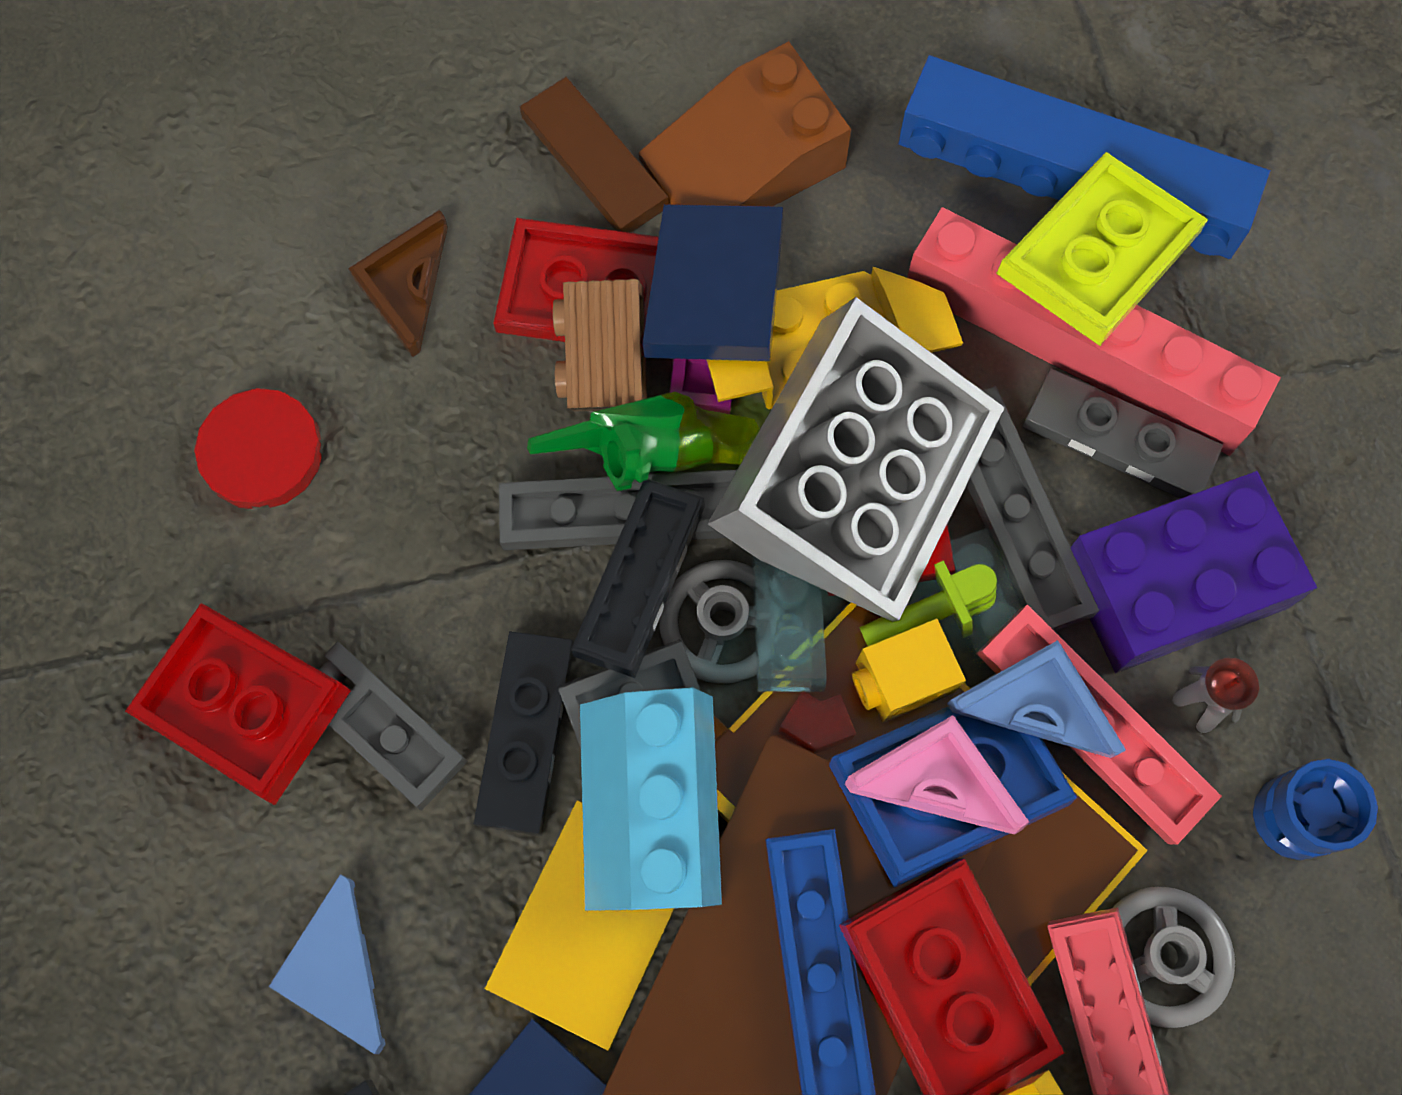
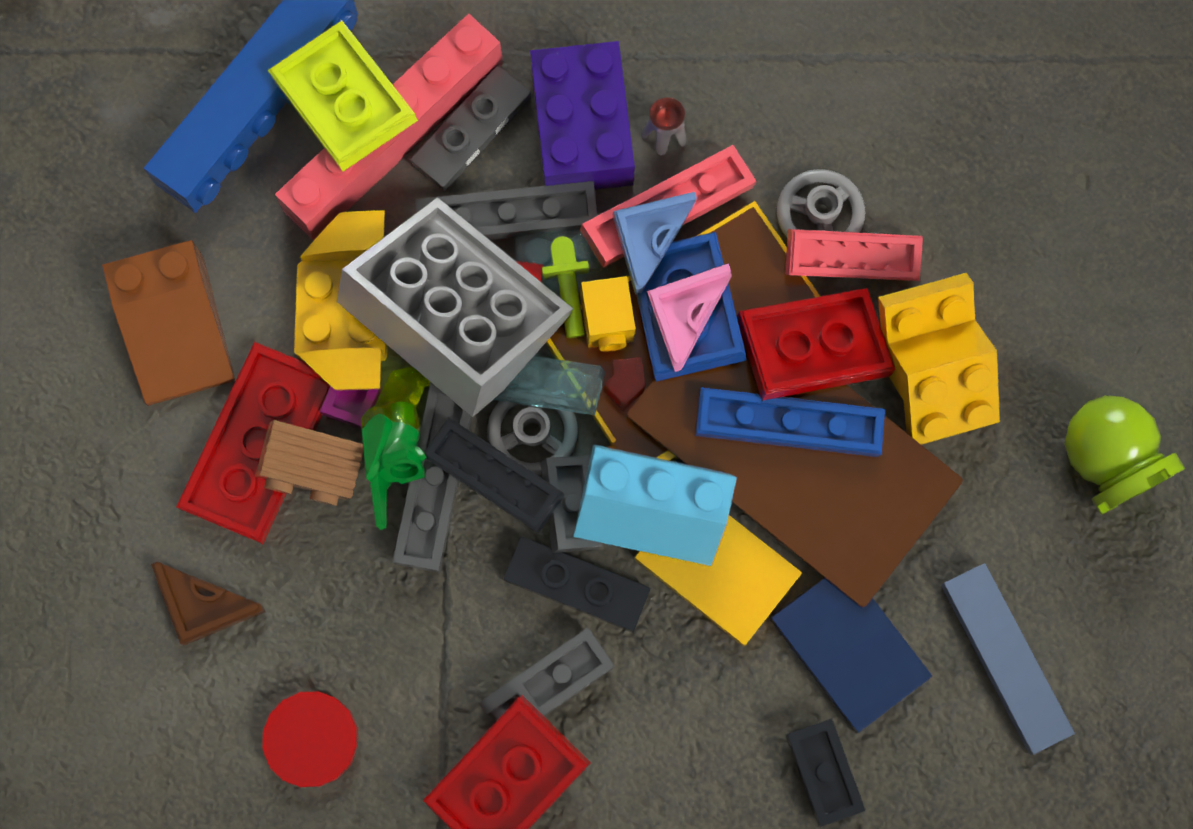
camera: 80 degrees left, 5 degrees up
(332, 970) = (710, 748): medium blue tile -> none
(594, 156) = (138, 438): reddish brown tile -> none
(714, 283) = (283, 368): dark blue tile -> none
(1315, 810) = (756, 92): blue wheel -> none

